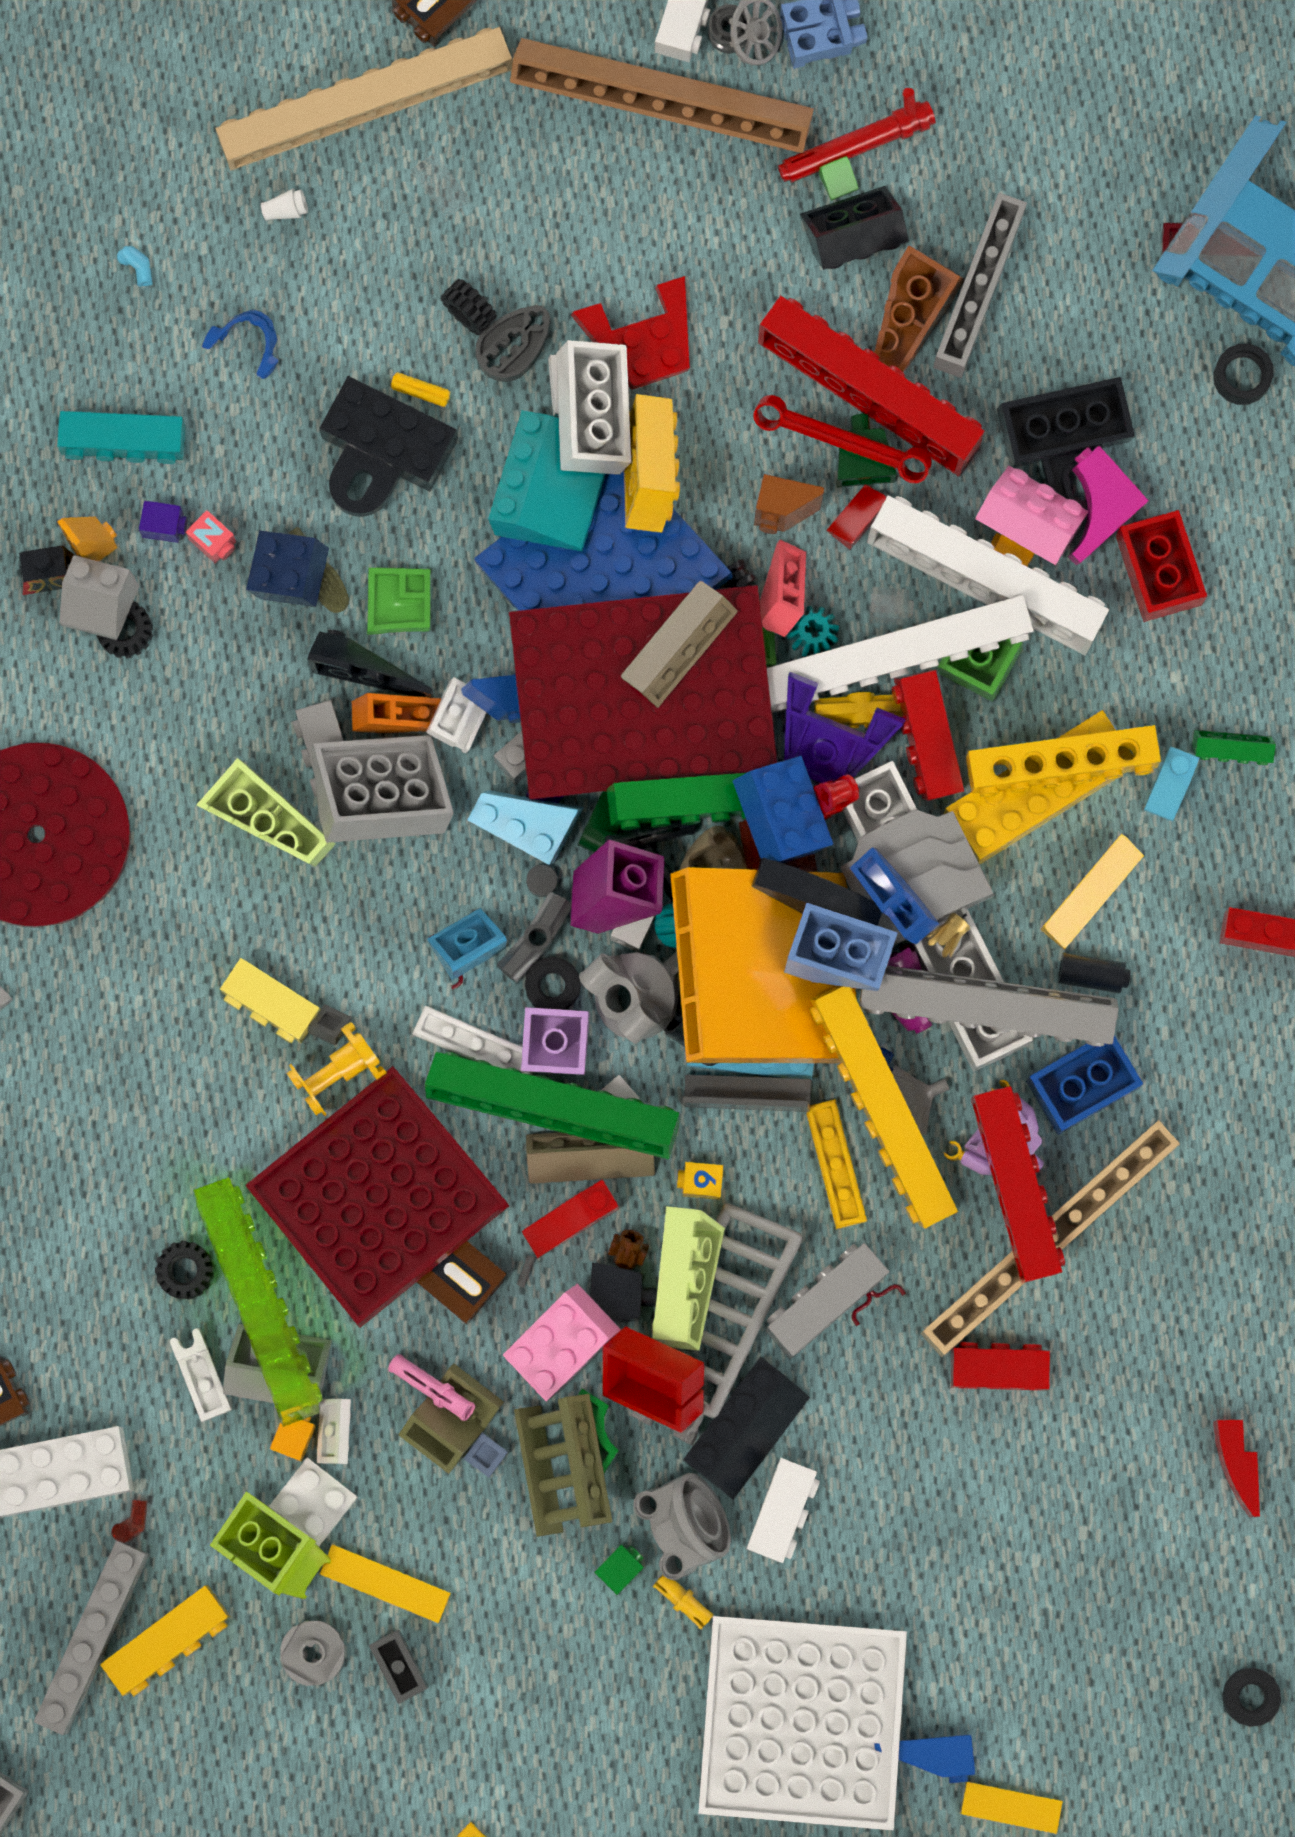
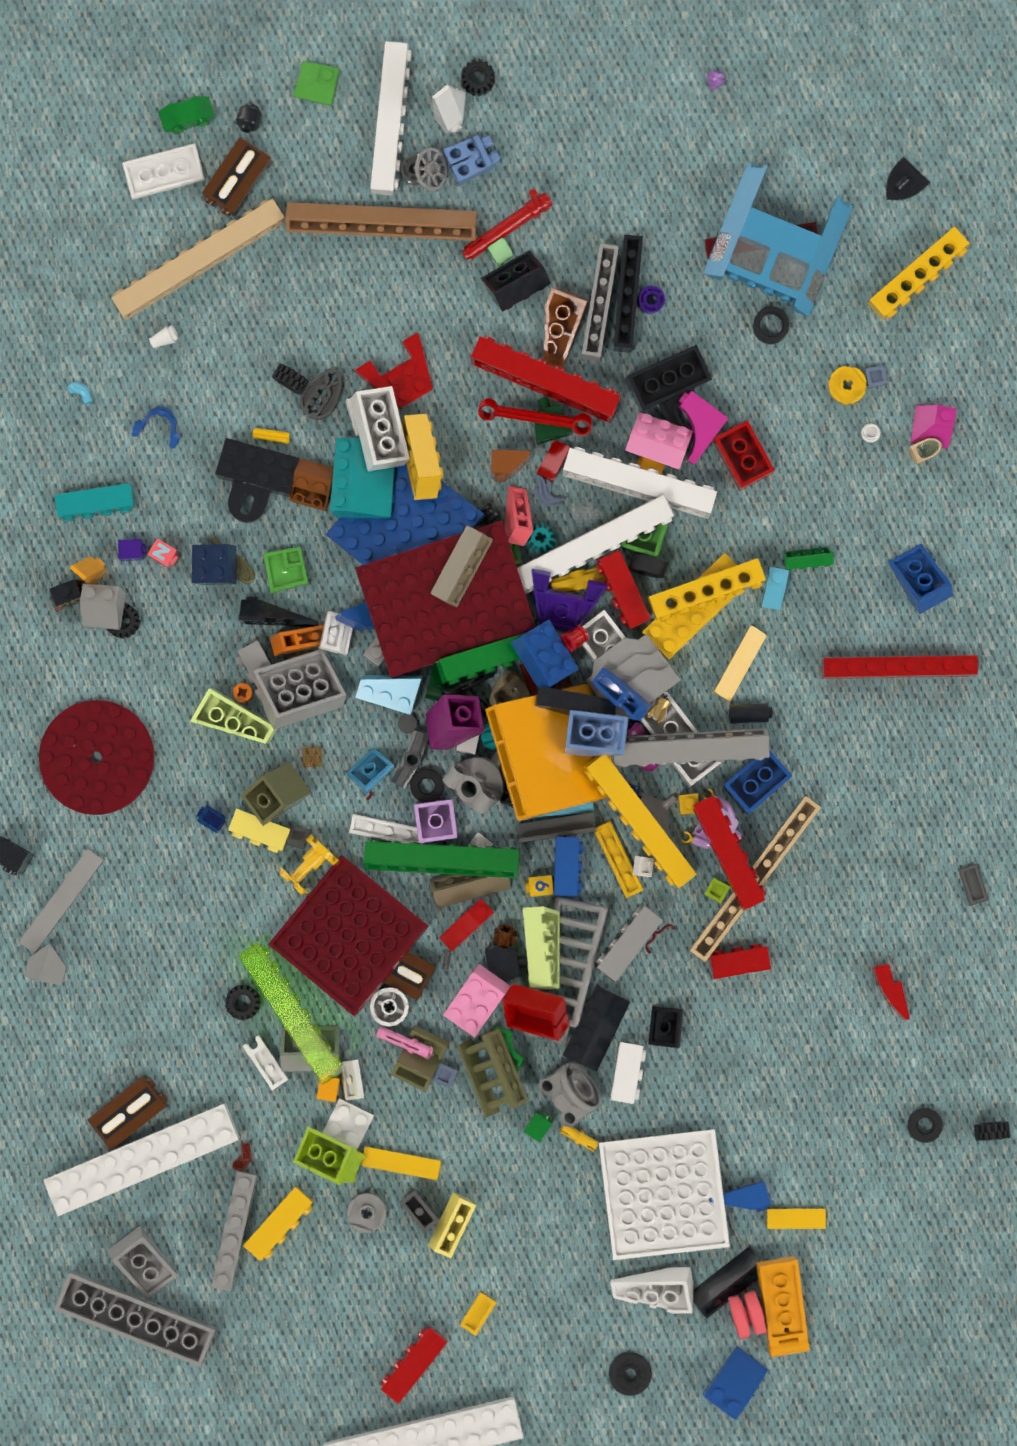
camera: 10 degrees left, 5 degrees up
(198, 967) = (211, 818): none -> clear blue brick
(293, 785) = (245, 695): none -> orange wheel
(308, 945) = (275, 793): none -> olive slope
(379, 903) = (312, 757): none -> clear orange tile
(415, 1307) = (395, 1016): none -> white brick
(446, 1701) = (452, 1225): none -> light yellow brick
(468, 477) = (312, 484): none -> dark orange slope
(752, 1157) = (567, 866): none -> blue brick
(833, 563) = (544, 493): none -> sand blue piece
(859, 1449) = (665, 1027): none -> black slope
(874, 1183) = (643, 866): none -> white plate
(961, 1094) = (685, 803): none -> yellow brick
(975, 707) = (648, 566): none -> black tyre
(985, 1245) = (717, 890): none -> lime plate
(1026, 280) = (627, 293): none -> black brick
(1071, 288) = (657, 293): none -> dark purple wheel

